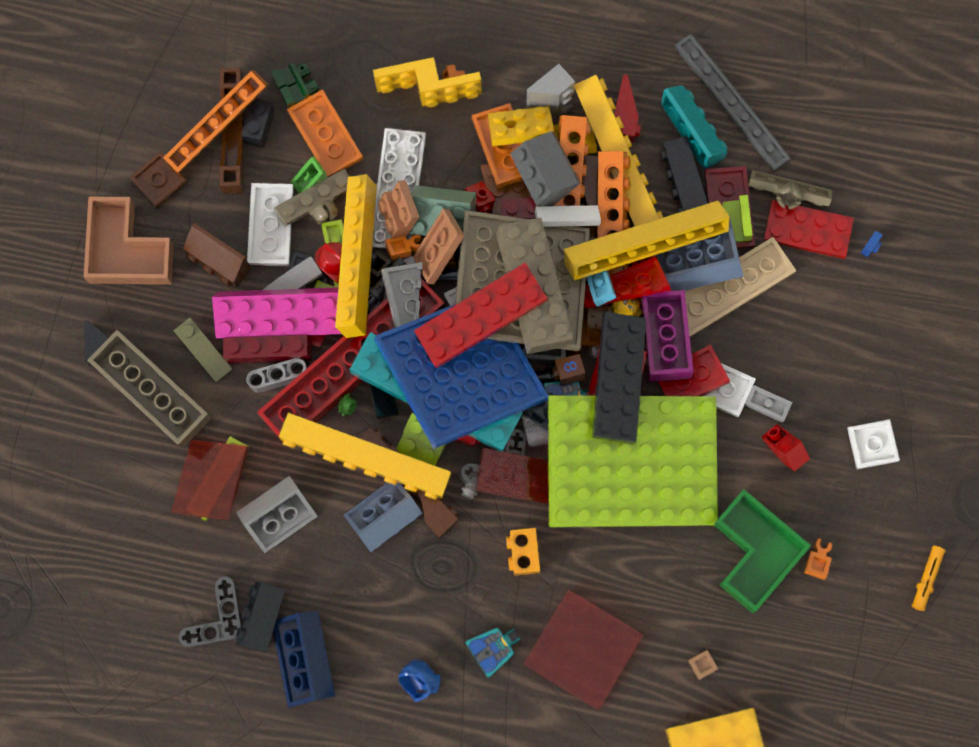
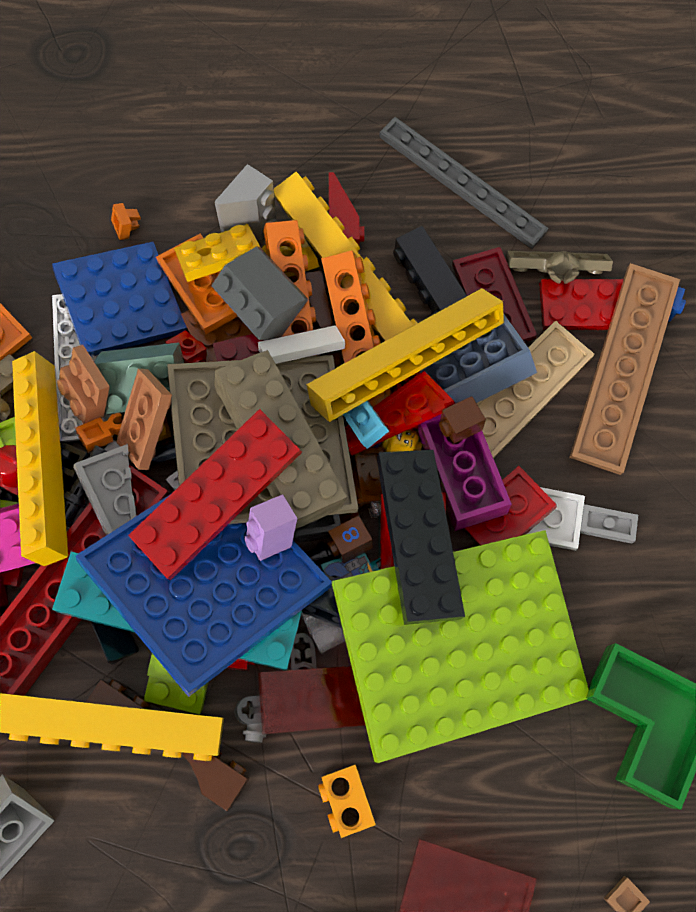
camera: 20 degrees left, 5 degrees down
(347, 405) = (66, 655): bright green plate -> none
(382, 514) = (142, 799): sand blue slope -> none
(430, 88) = (84, 221): yellow bracket -> none
(436, 143) = (119, 298): none -> blue plate
(514, 348) = (270, 527): none -> lavender brick
(672, 301) = (462, 420): none -> reddish brown brick
(691, 122) = (420, 208): teal slope -> none
(740, 218) = (515, 305): lime panel -> none
(786, 447) = (648, 573): red slope -> none
(816, 287) = (625, 369): none -> medium nougat plate

